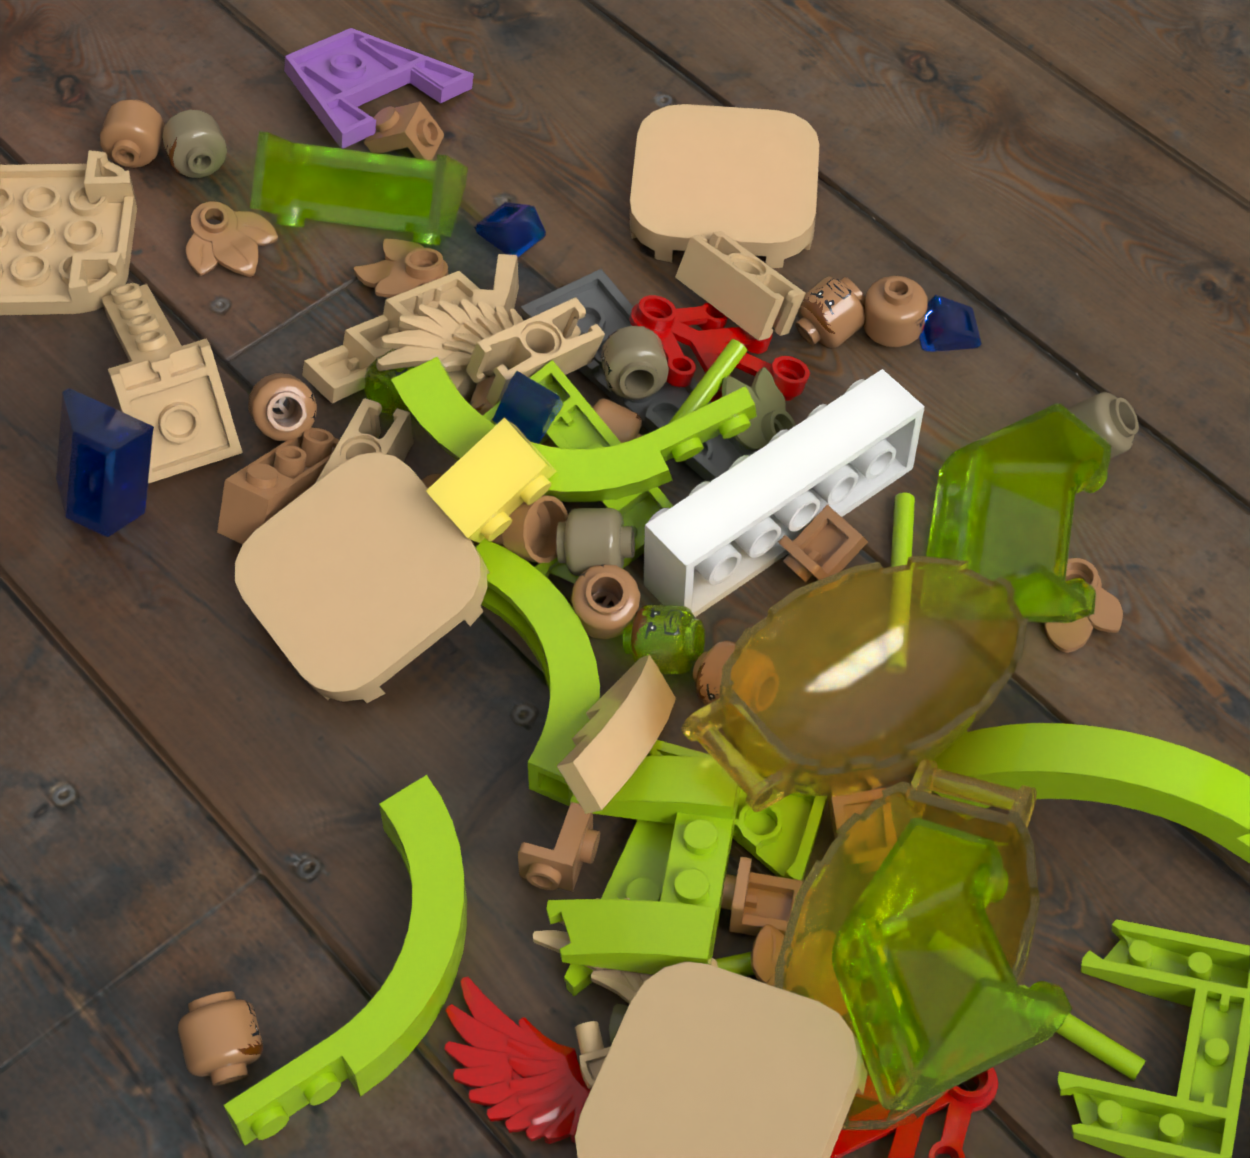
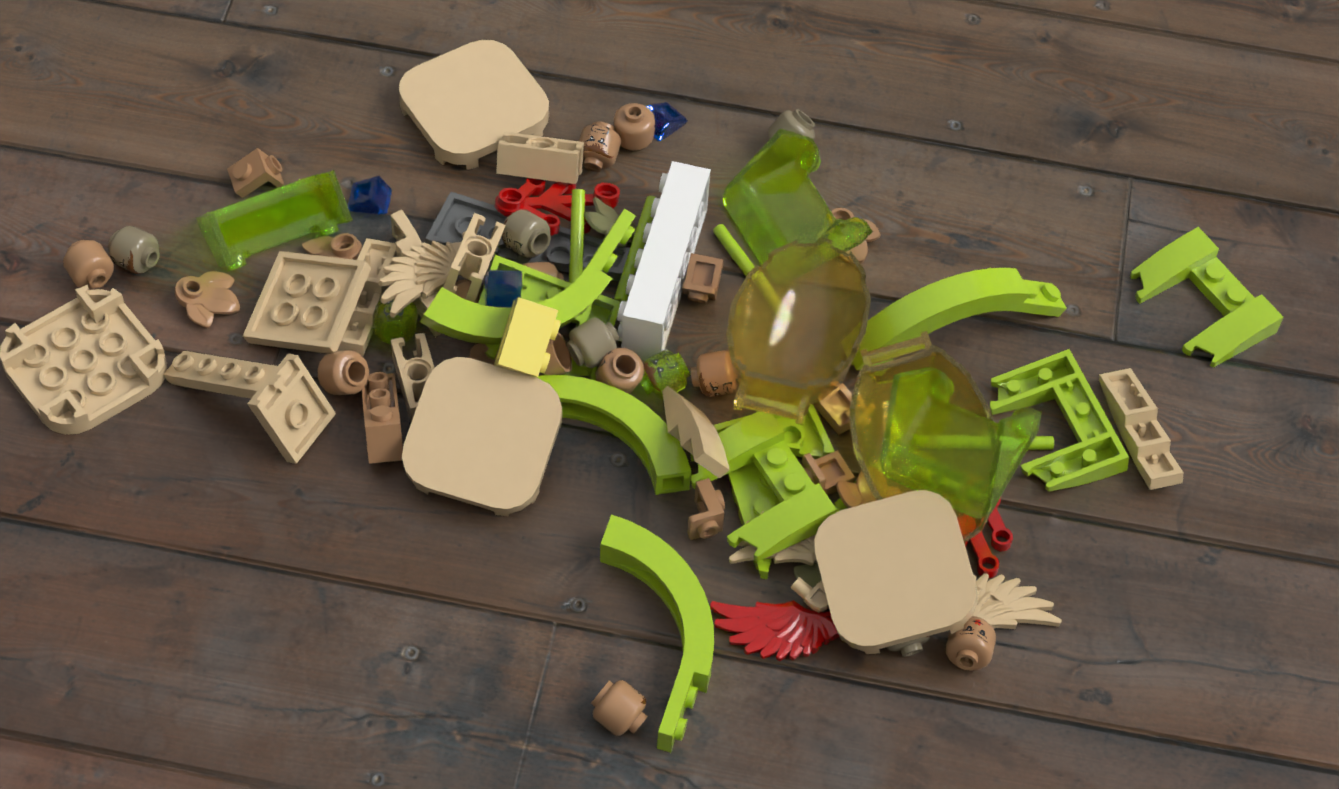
camera: 40 degrees left, 0 degrees up
(102, 464) = (271, 463): clear blue slope -> none
(314, 302) = (307, 302): none -> tan plate
(357, 68) = (191, 152): medium lavender wing -> none

